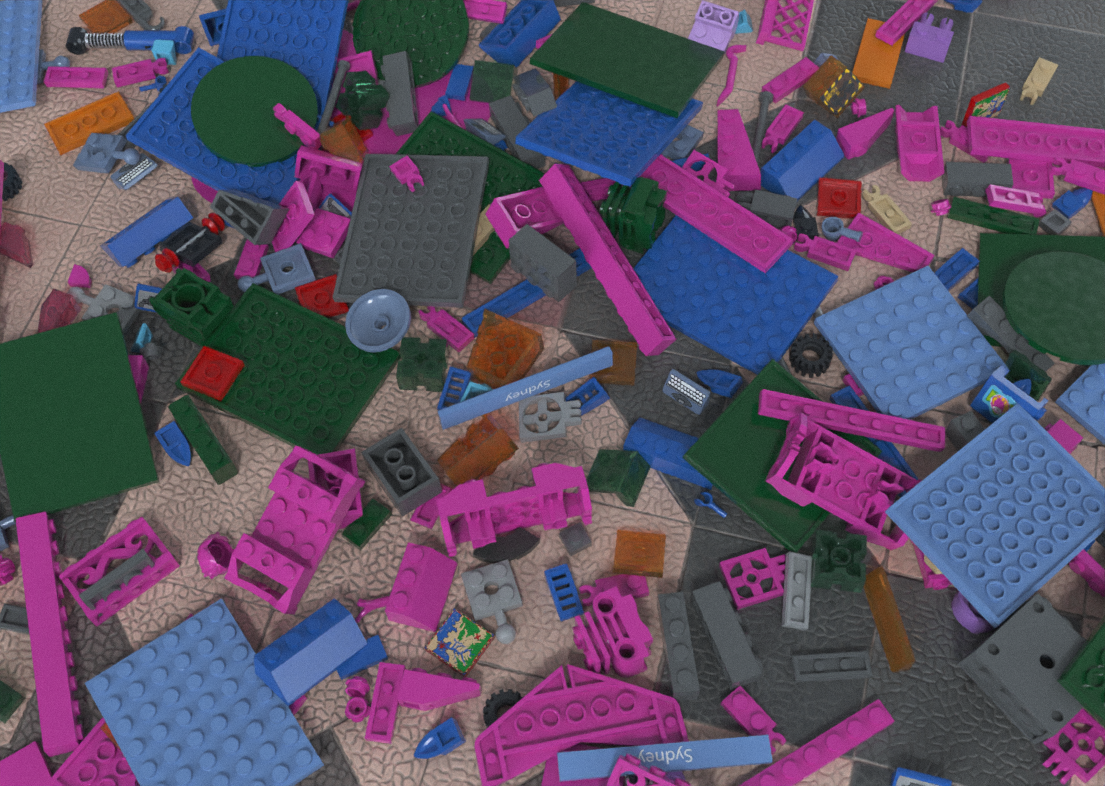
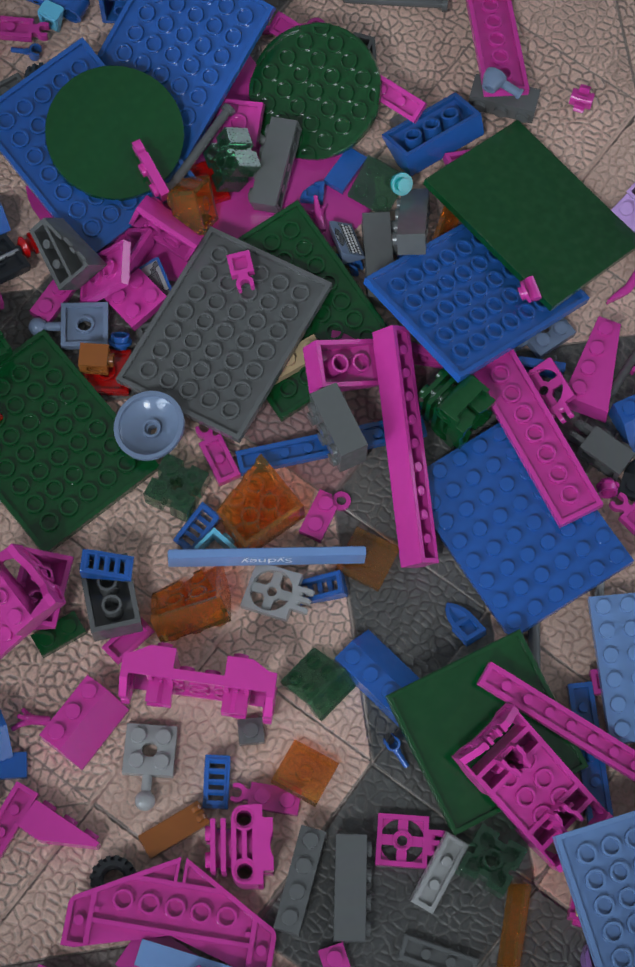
camera: 15 degrees right, 10 degrees up
(308, 288) = (95, 358): none -> dark orange brick
(323, 269) = (120, 340): none -> blue plate
(387, 435) = (107, 557): none -> blue slope
(440, 740) = (43, 879): blue plate -> none
(459, 642) = (99, 790): tile -> none
(508, 547) = (184, 714): pearl dark grey tile -> none
(511, 70) = (401, 183): none -> teal plate
(543, 649) = (174, 830): none -> dark orange hinge
(557, 341) = (322, 513): none -> dark pink hinge
(653, 106) = (529, 290): none -> dark pink plate
(686, 392) = (425, 622): slope -> none
(811, 344) = (575, 619): black tyre -> none

